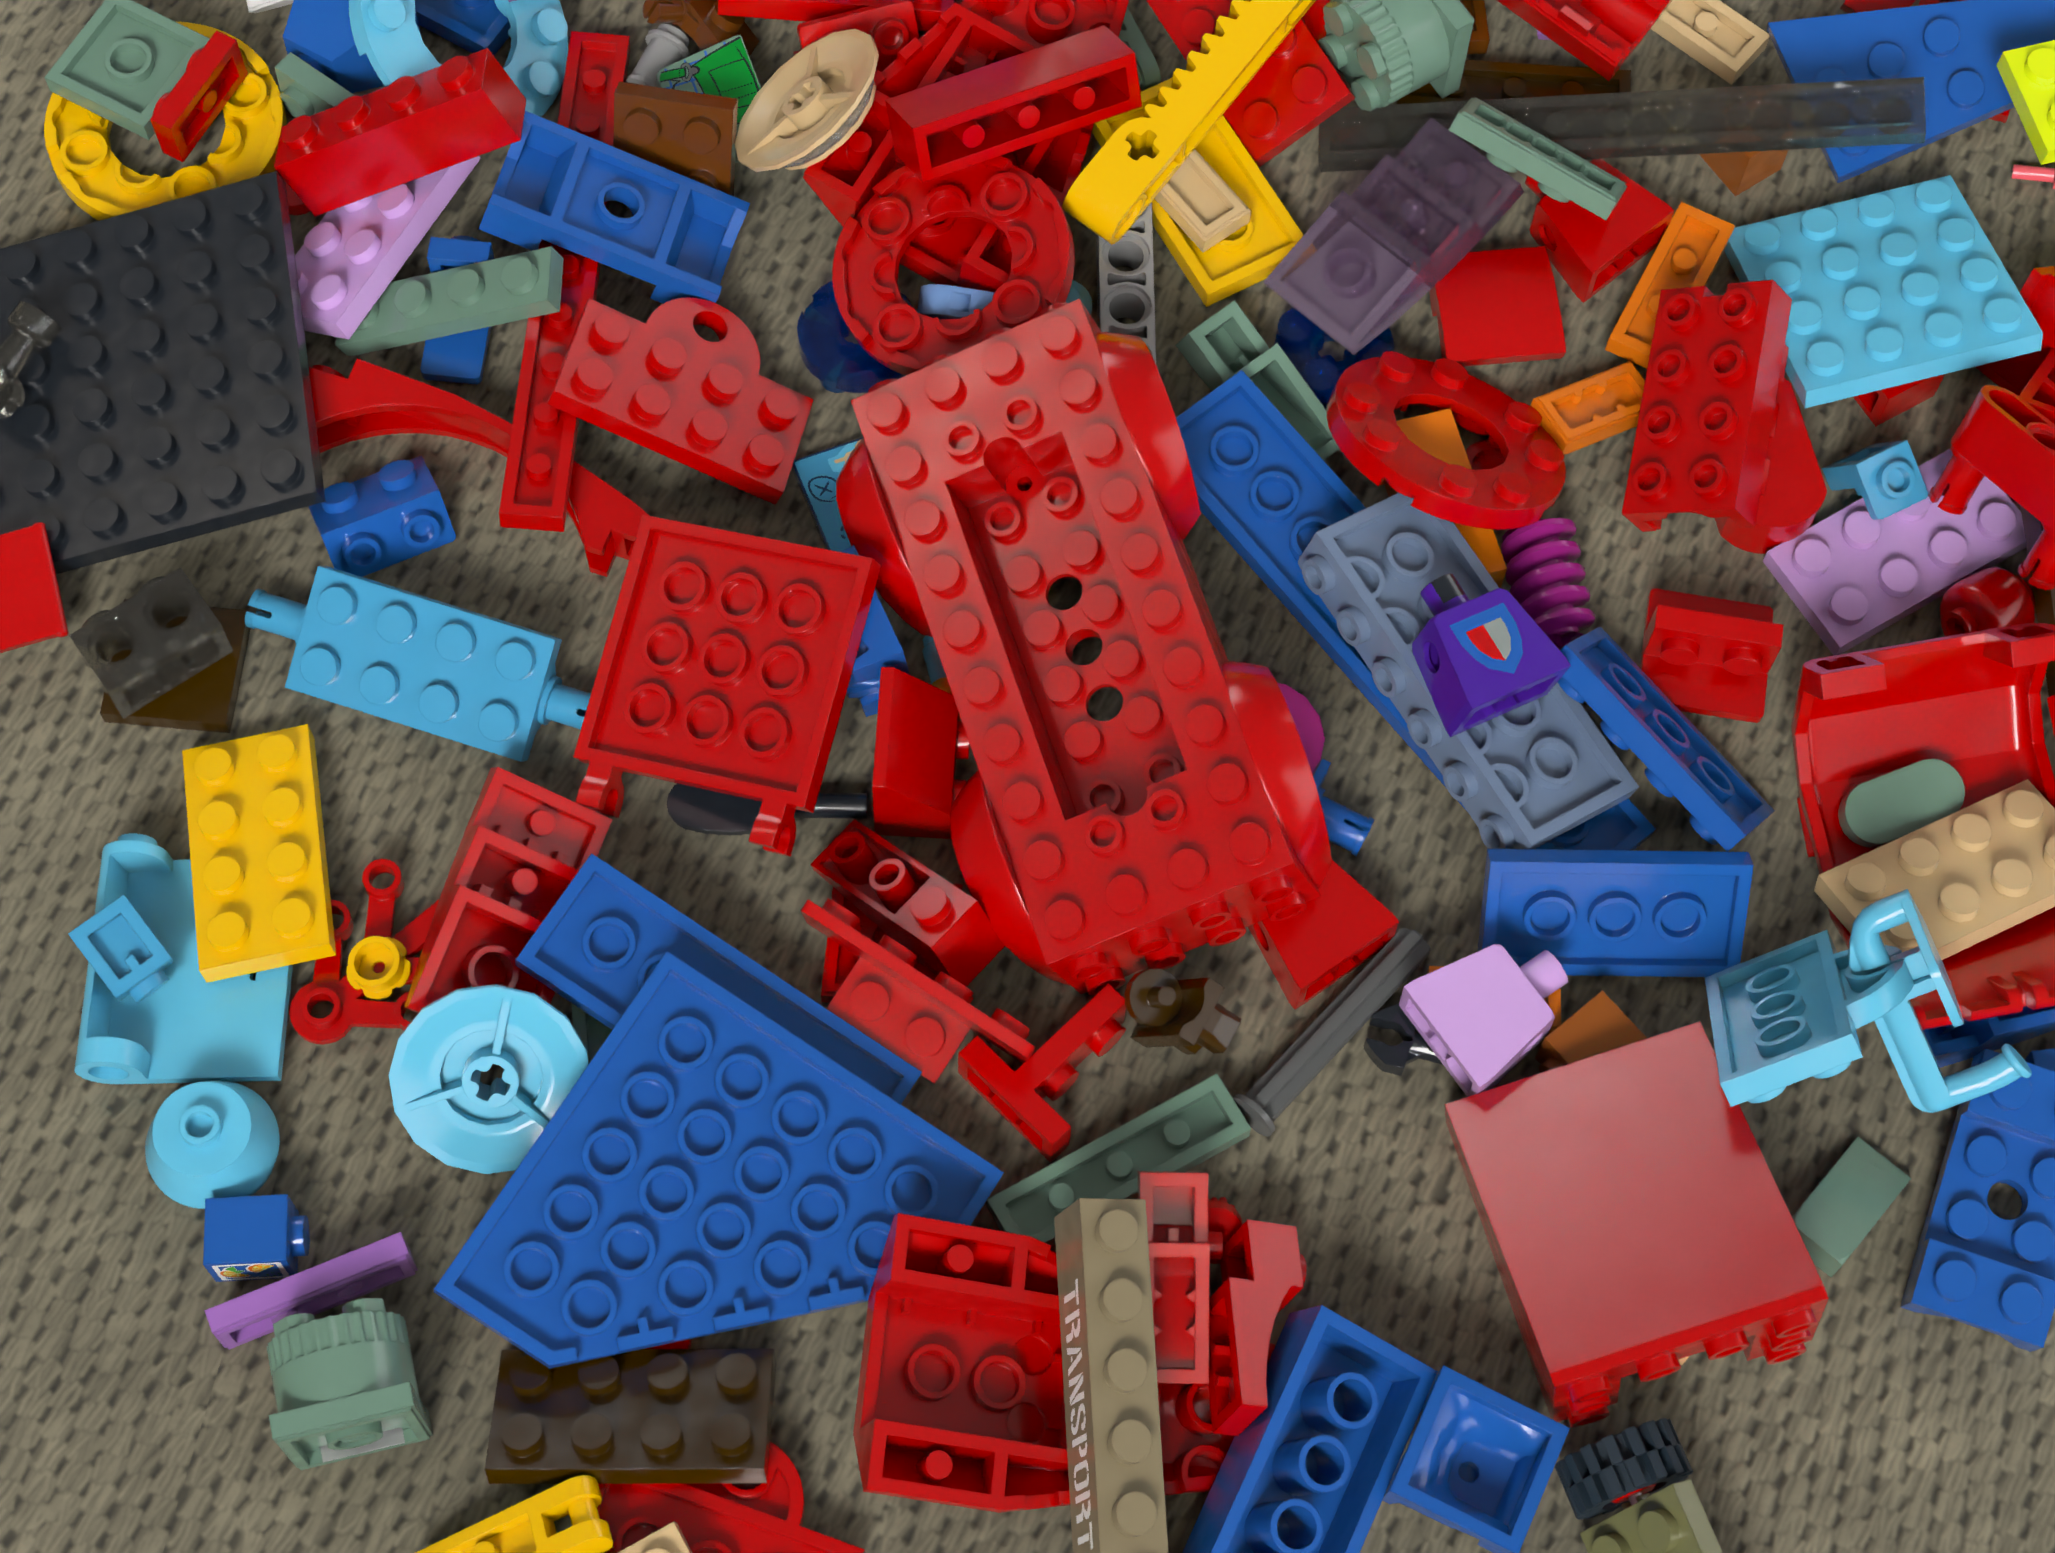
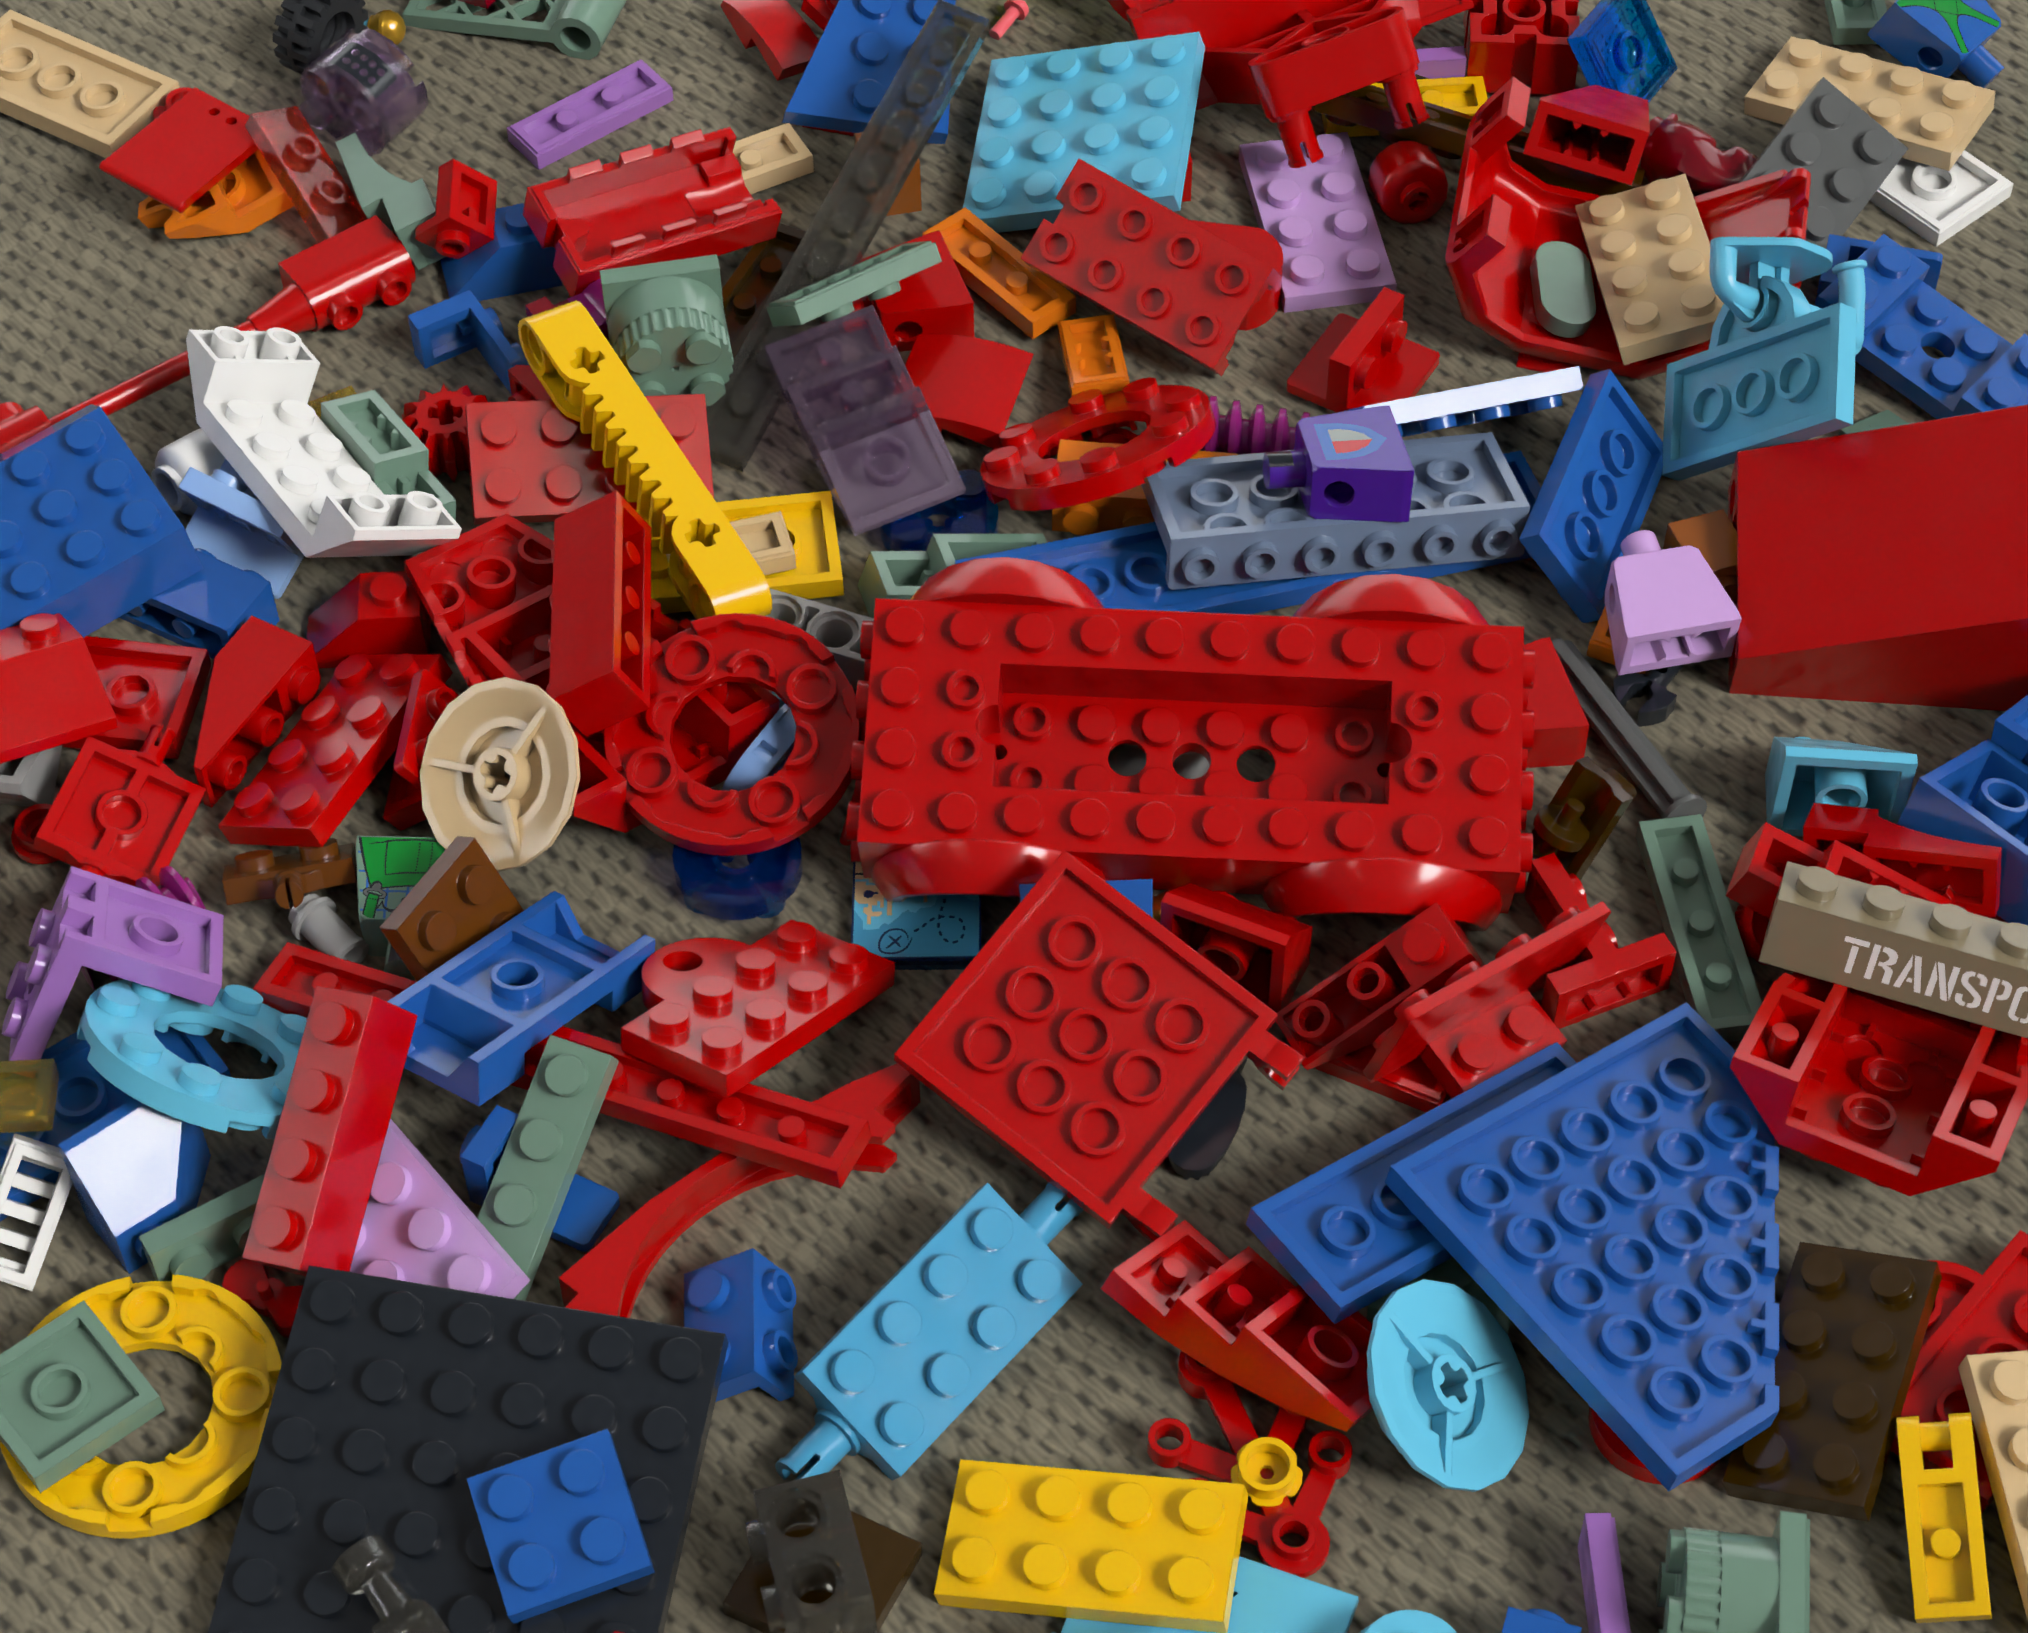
camera: 65 degrees left, 15 degrees down
(111, 445) = (560, 1526): none -> blue plate
(199, 96) = (159, 1352): red plate -> none
(1336, 1227) = (1834, 773): none -> medium azure slope
(1883, 476) = (1251, 192): dark azure bracket -> none

